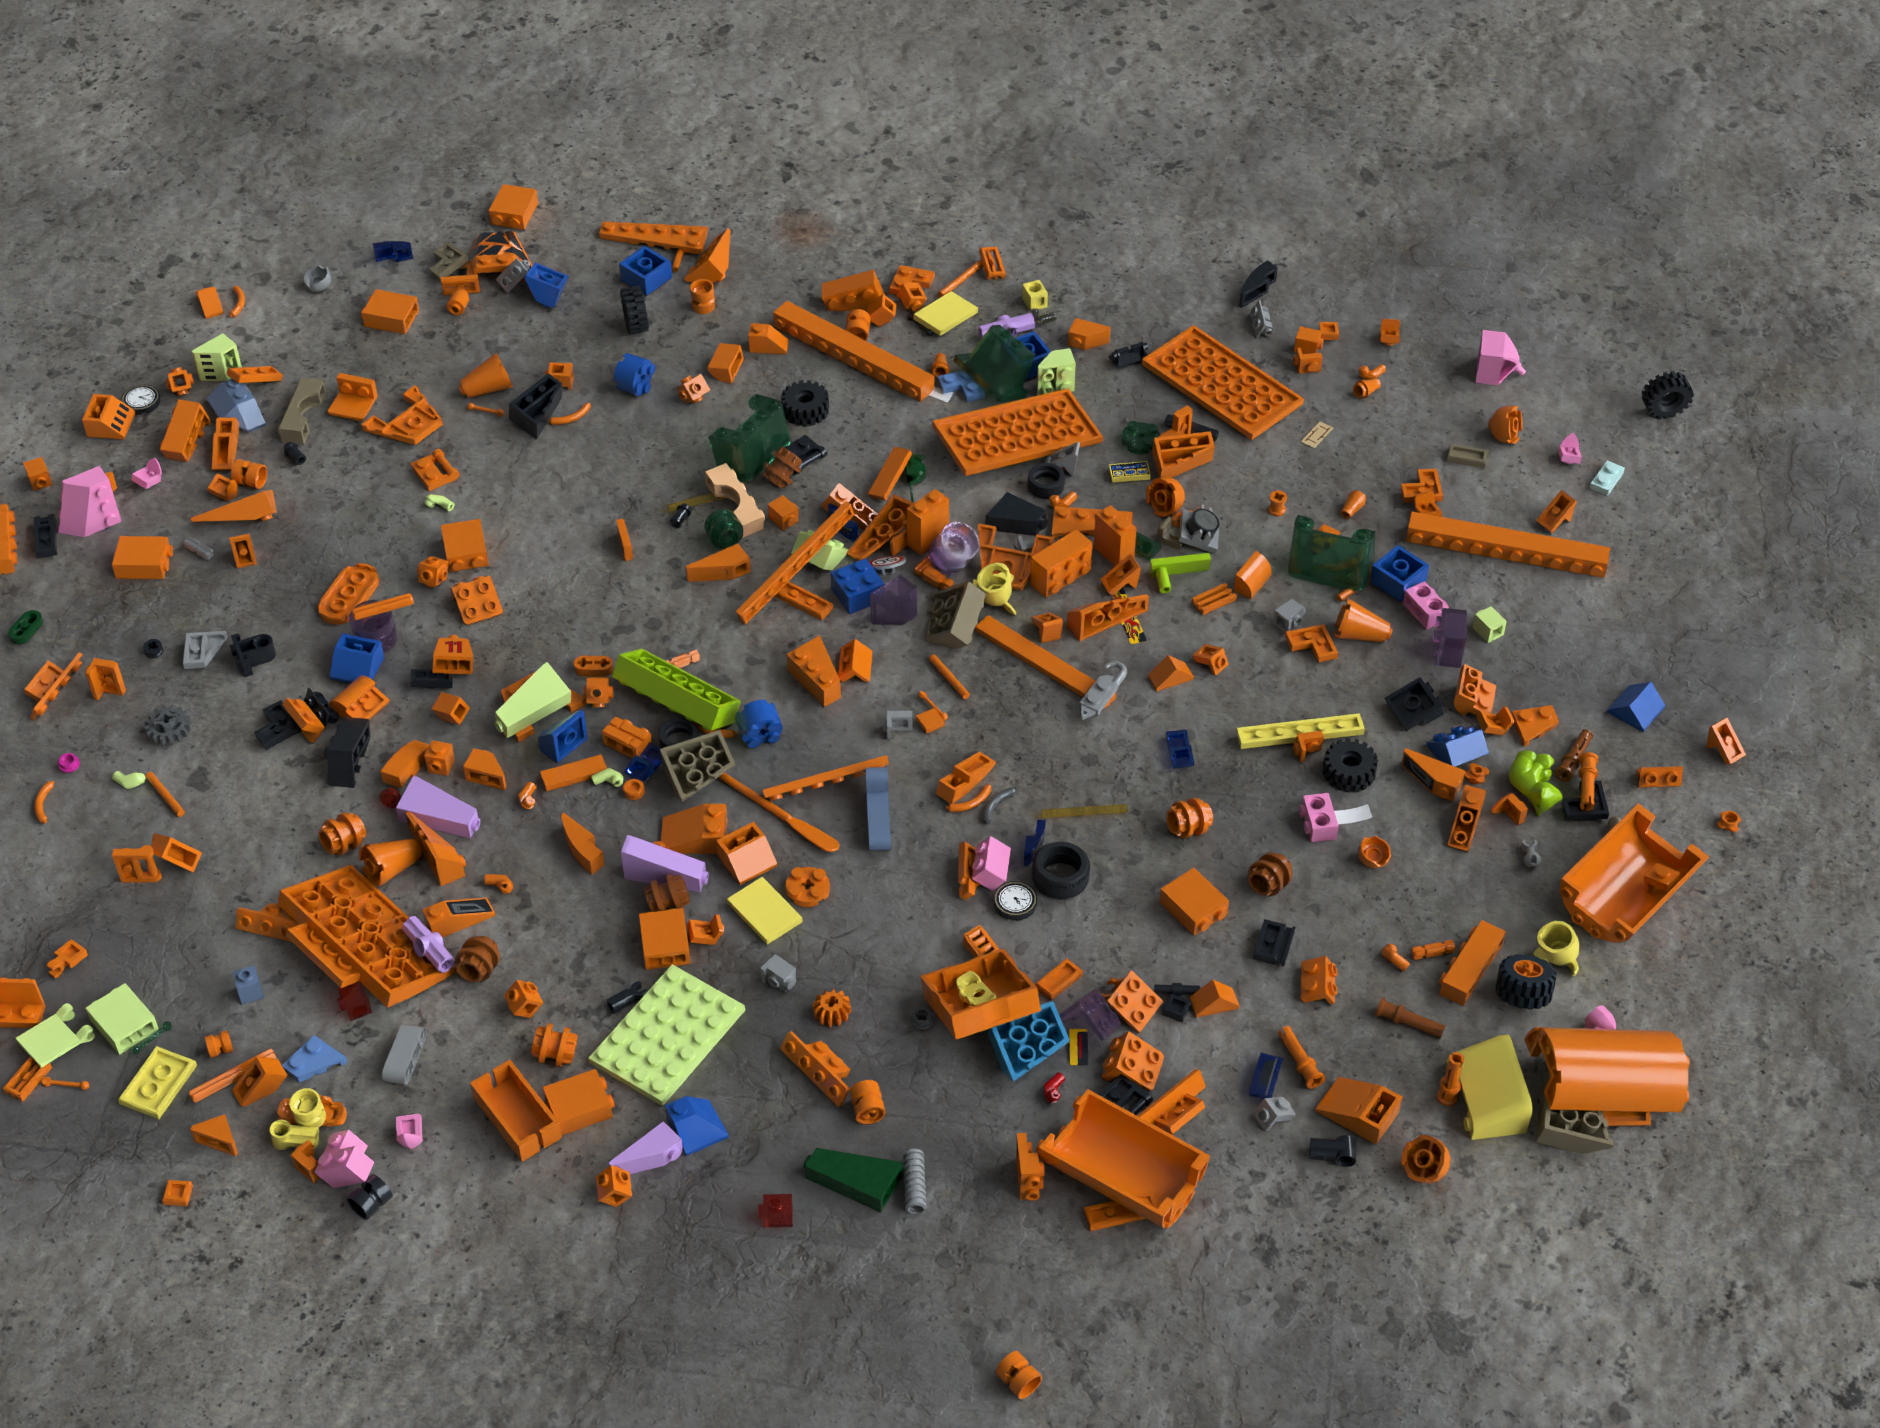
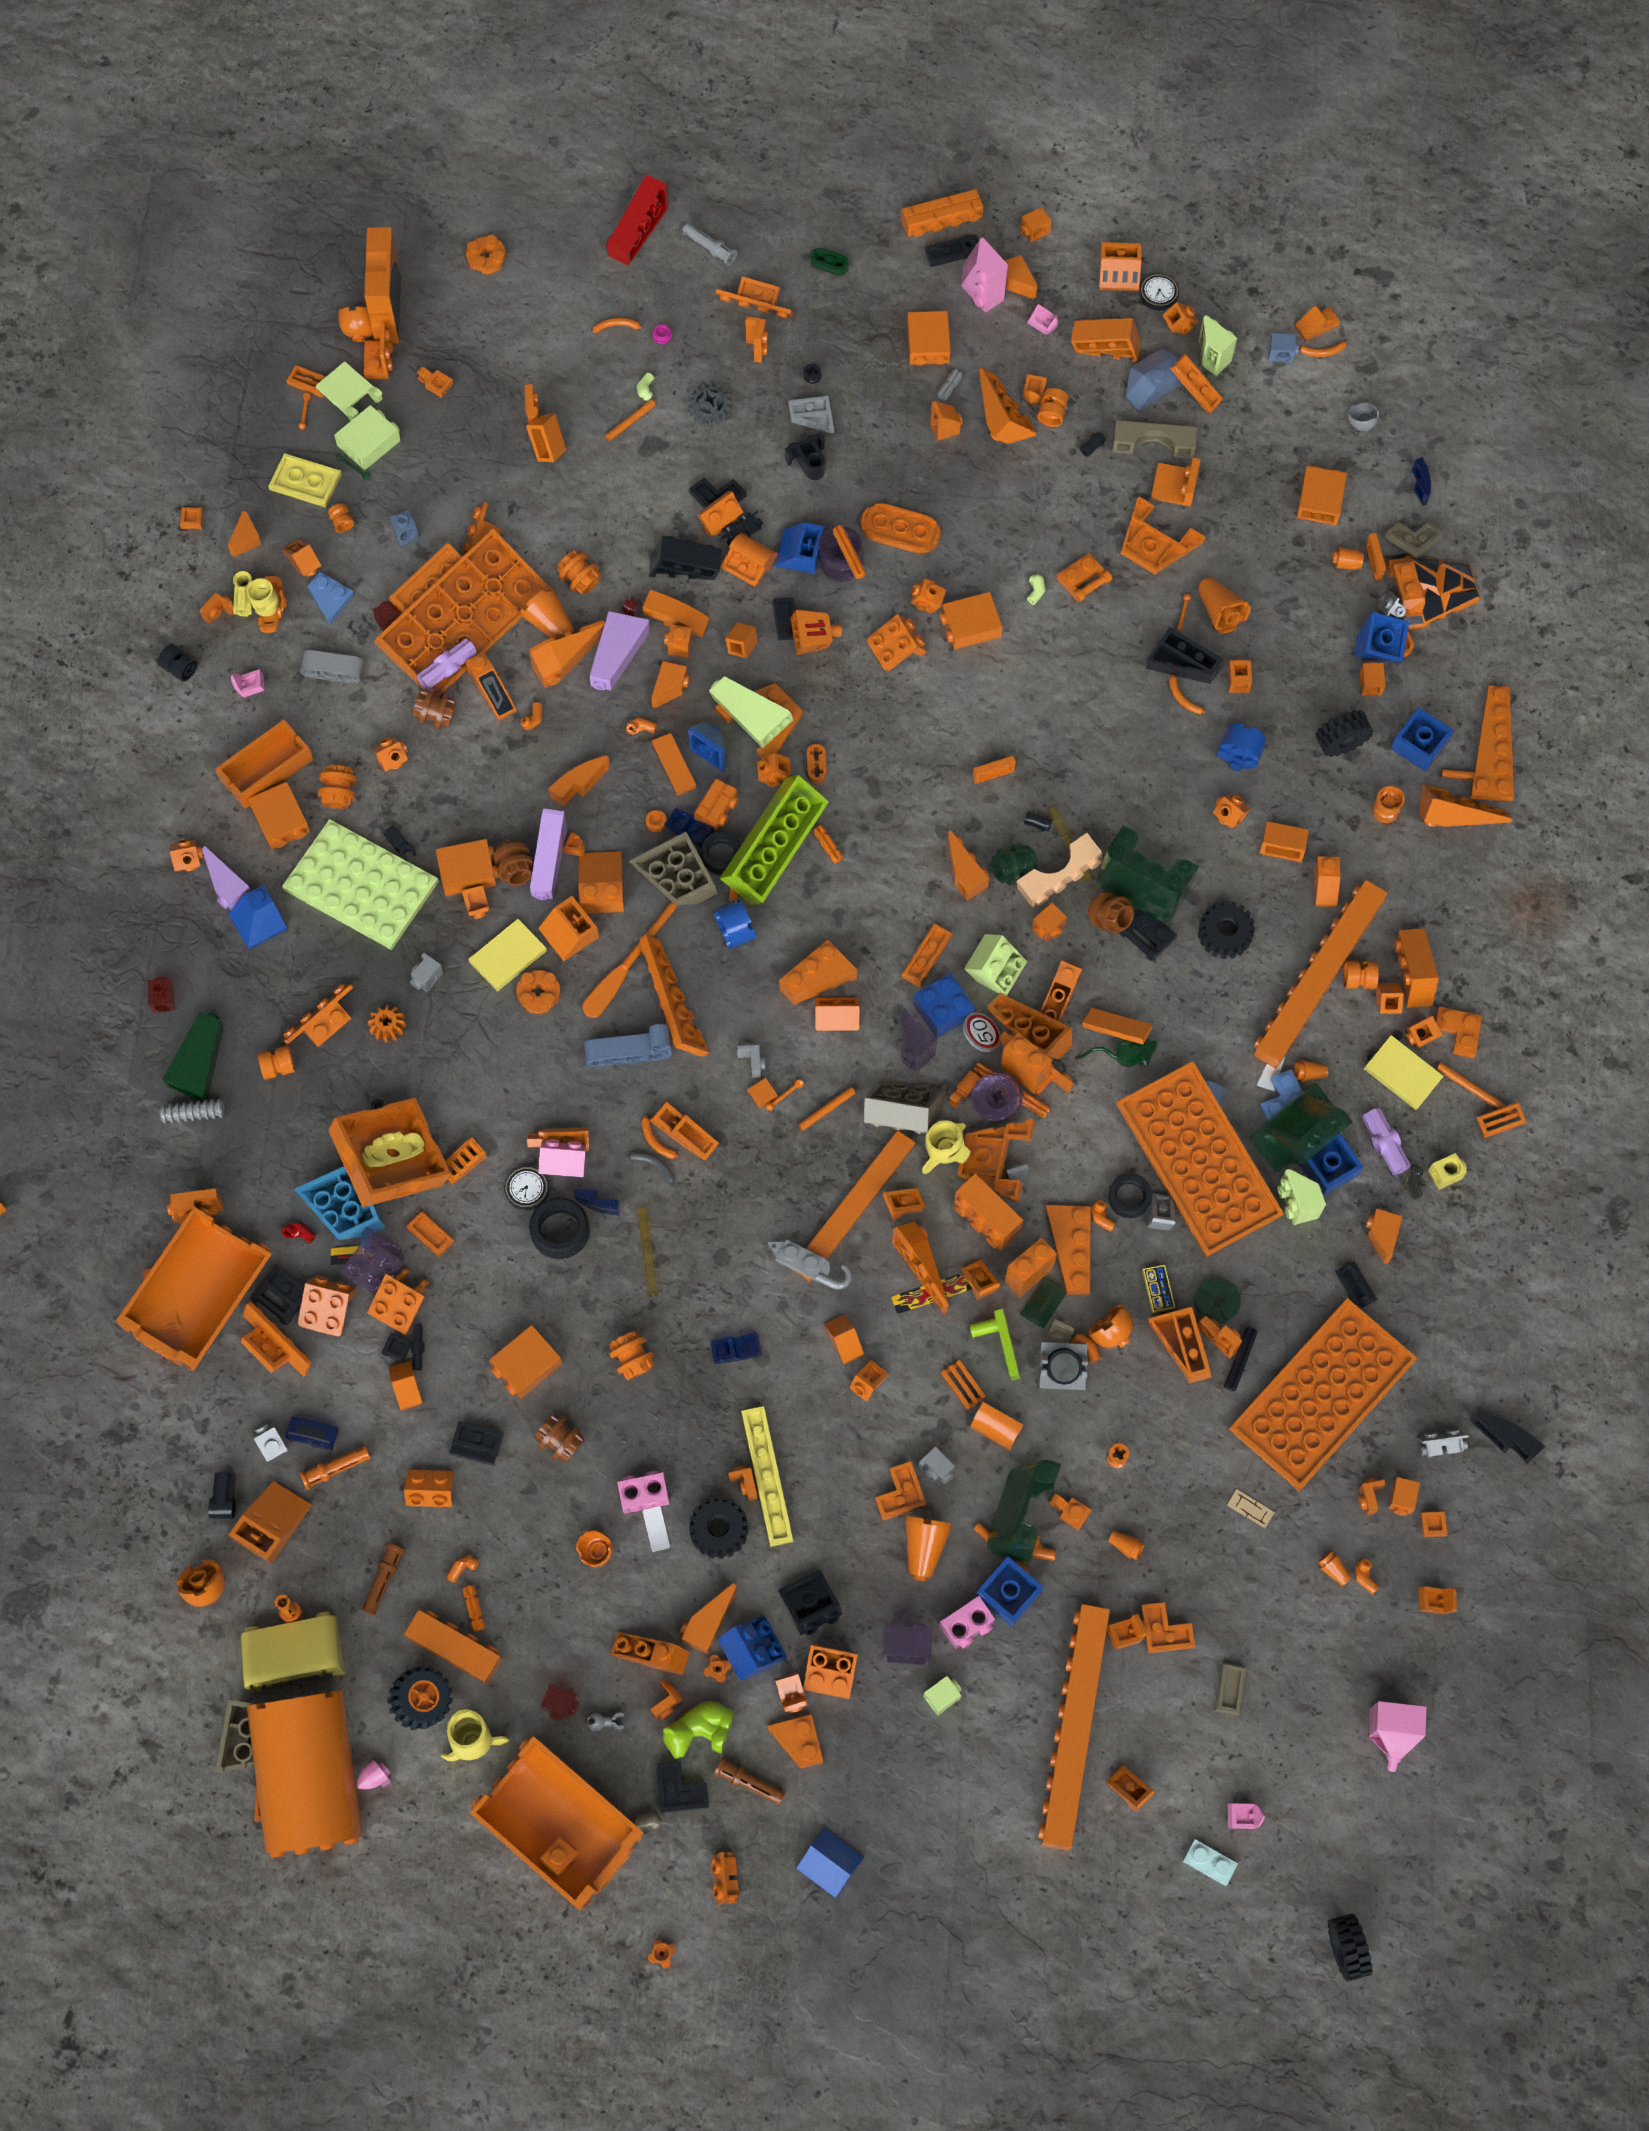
camera: 85 degrees right, 20 degrees up
(225, 444) = (1097, 378): orange slope -> none
(226, 1078) = (311, 536): orange axle -> none
(230, 322) = (1282, 347): none -> sand blue brick
(344, 1160) = (210, 633): bright pink brick -> none
(513, 206) = (1517, 590): orange brick -> none
(579, 297) = (1372, 678): none -> orange brick
(608, 775) = (669, 795): yellowish green arm -> none
(794, 563) = (956, 935): orange tile -> none
(850, 529) = (1042, 980): clear blue slope -> none
(1017, 516) = (1068, 1164): black slope -> none
(1506, 424) = (1279, 1736): orange cylinder -> none
(1518, 884) = (560, 1703): none -> clear red brick
(1588, 774) = (712, 1790): orange pin -> none
(1724, 738) = (770, 1960): orange slope -> none

